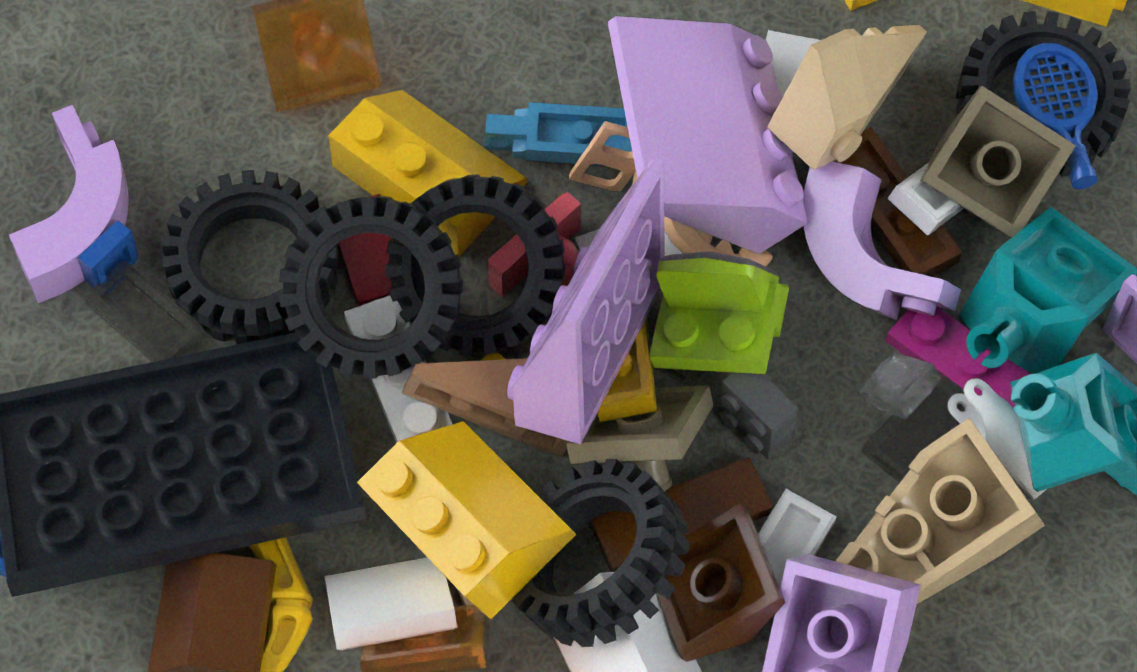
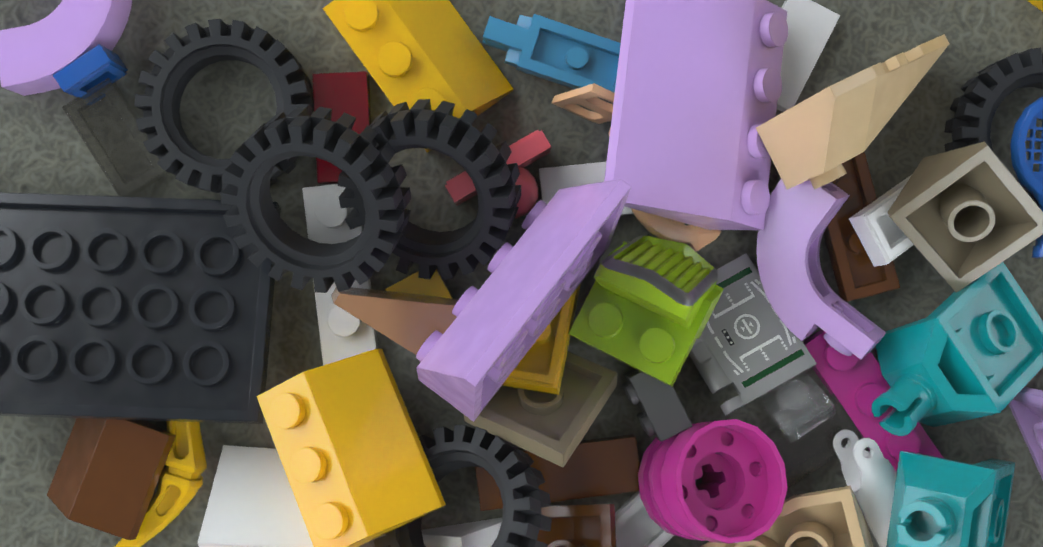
camera: 15 degrees right, 25 degrees up
(829, 338) = (746, 340): none -> light grey piece
(834, 458) = (739, 487): none -> dark pink wheel

